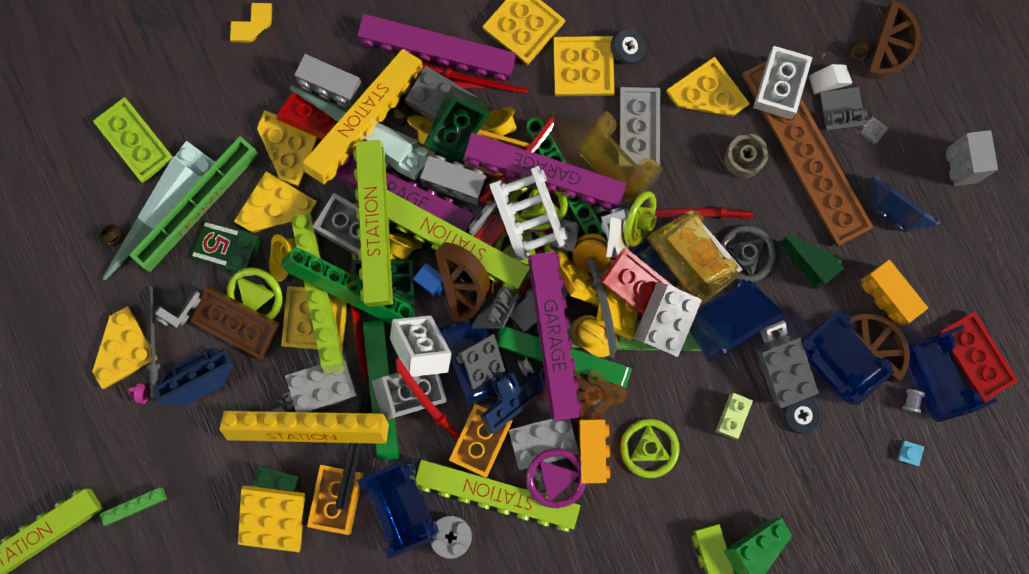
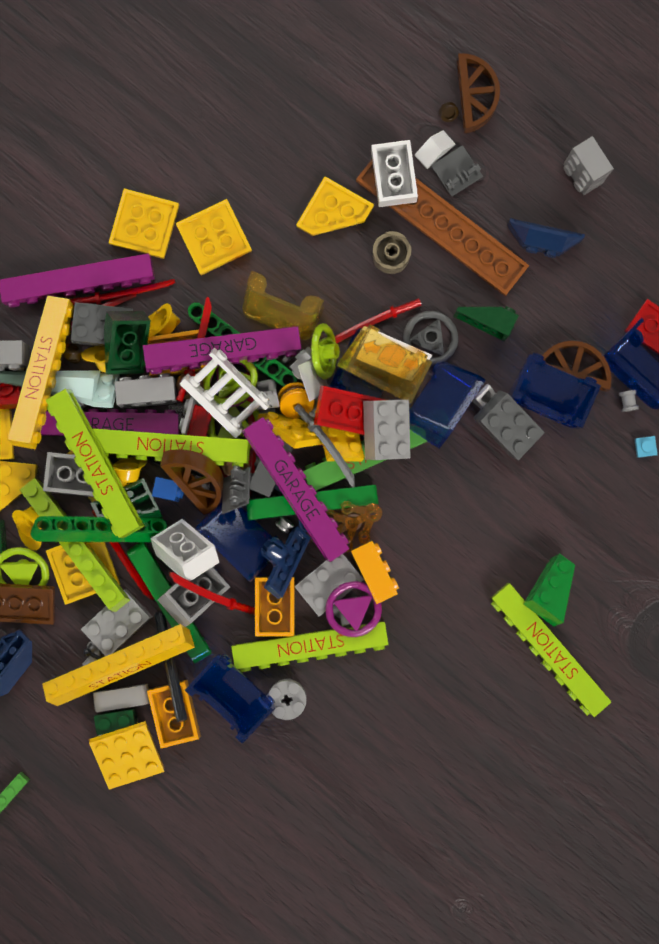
camera: 20 degrees left, 5 degrees up
(292, 460) = (121, 697): none -> light grey beam
(482, 361) = (244, 539): dark grey hinge -> none
(591, 336) = (327, 473): yellow piece -> none
(620, 50) = (239, 208): black bush -> none
(640, 123) = (287, 266): light grey plate -> none
(649, 448) = (422, 545): lime piece -> none
(734, 416) = (481, 485): yellowish green brick -> none
(798, 425) = (549, 457): black bush -> none
(873, 130) = (492, 178): clear tile -> none
(893, 294) = (571, 316): light orange brick -> none

